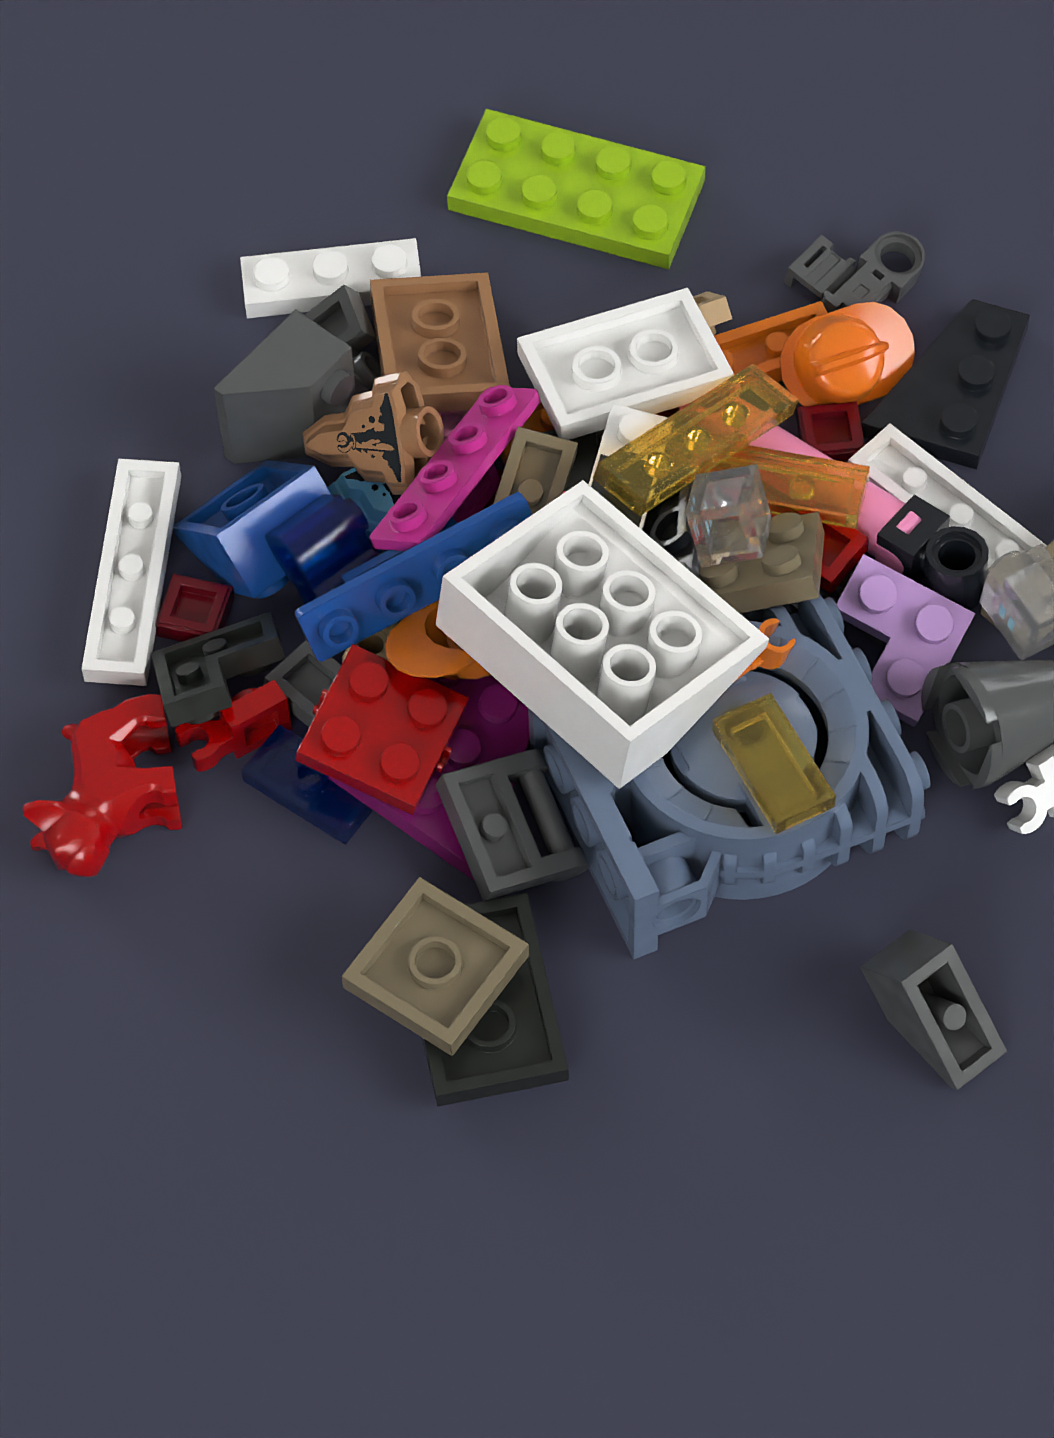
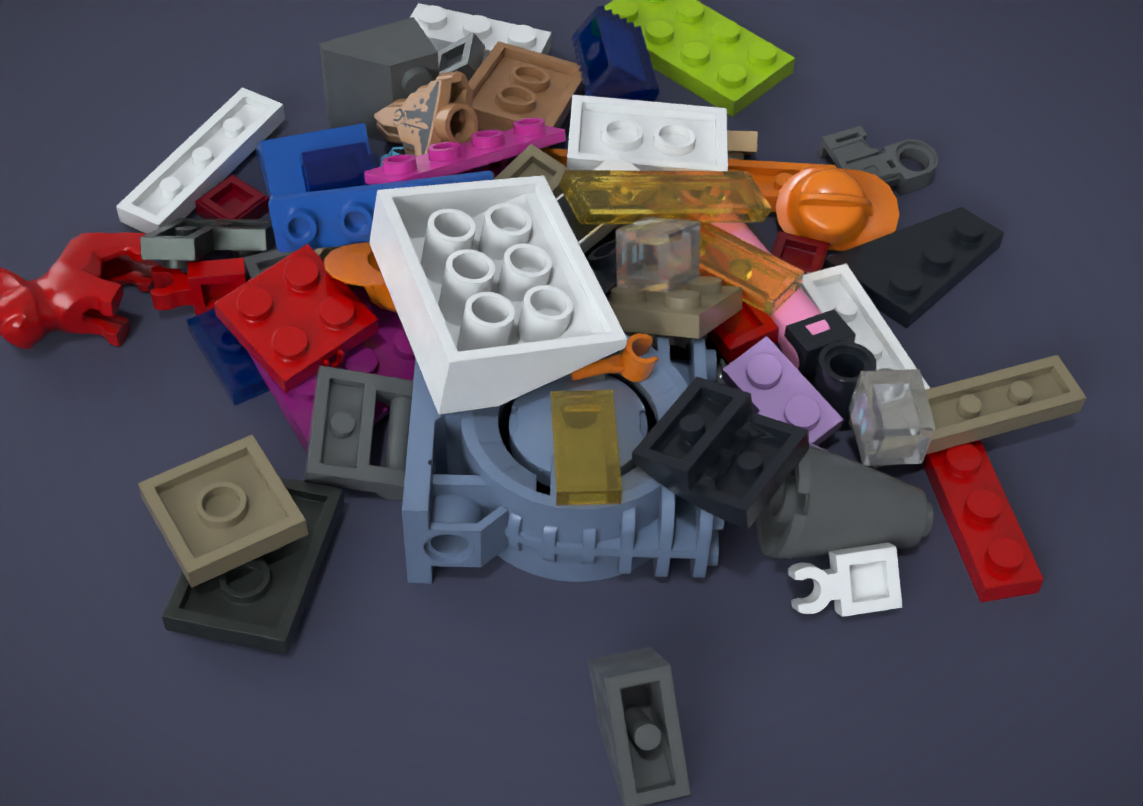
camera: 20 degrees right, 10 degrees down
(519, 259) = (614, 58): none -> clear blue brick
(902, 714) = (721, 452): none -> black slope

